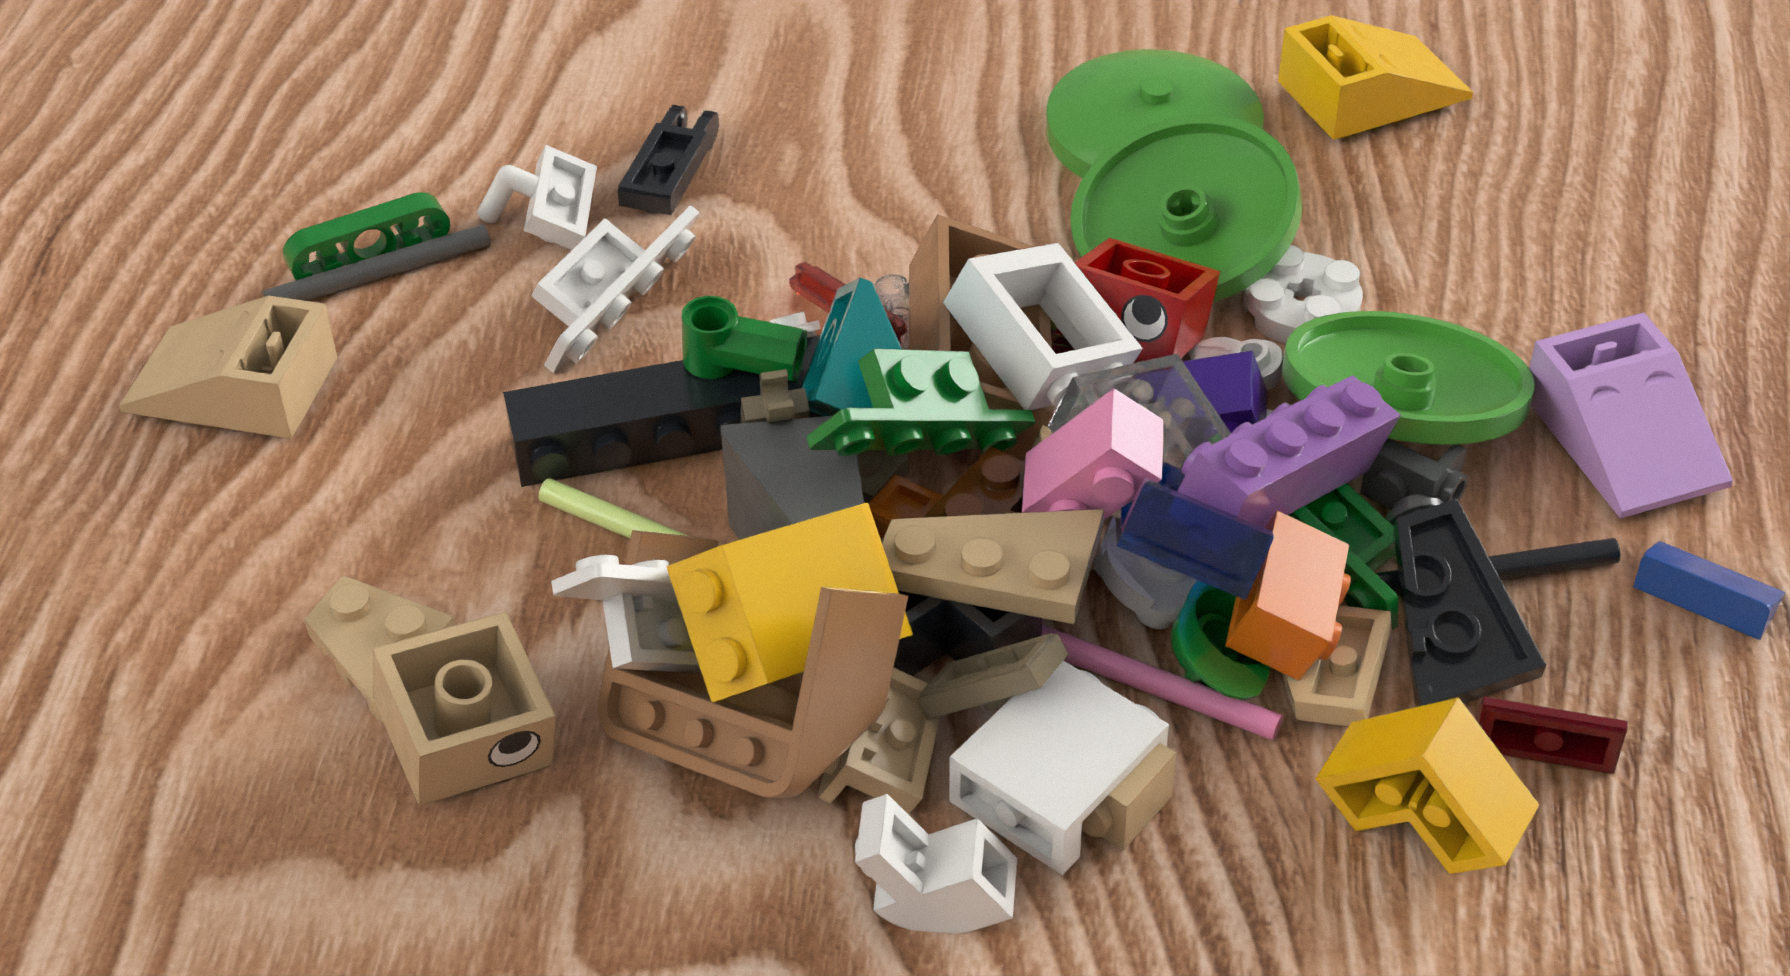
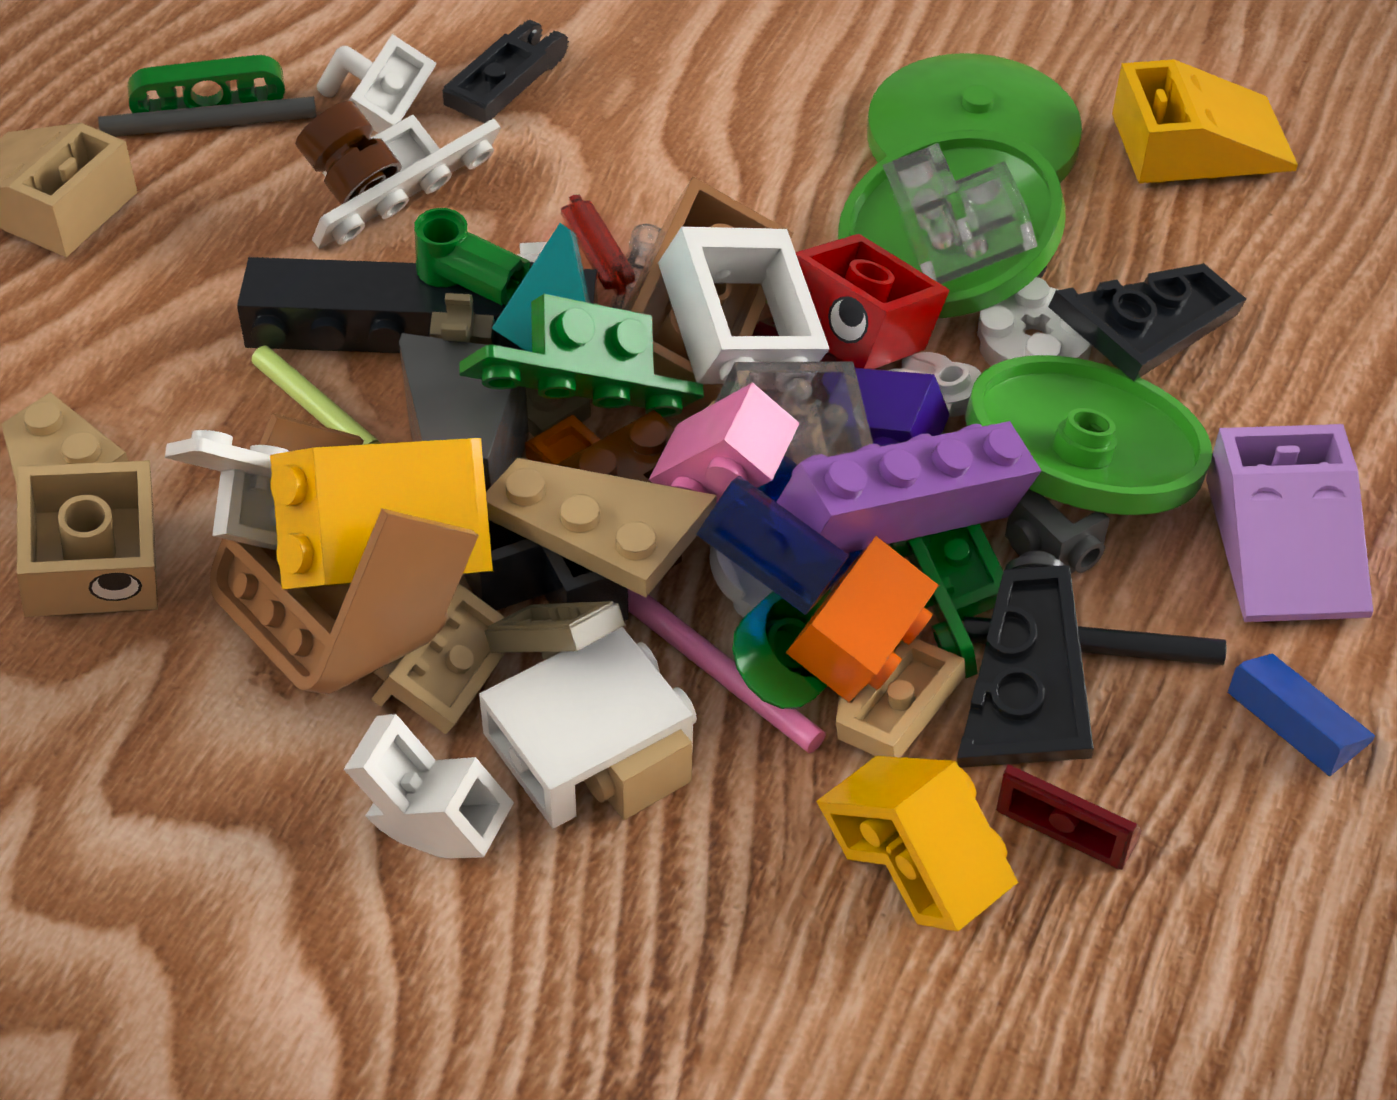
camera: 15 degrees right, 5 degrees up
(564, 267) = (342, 147): none -> reddish brown wheel
(1205, 202) = (958, 222): none -> clear brick
(1408, 260) = (1152, 319): none -> black wing

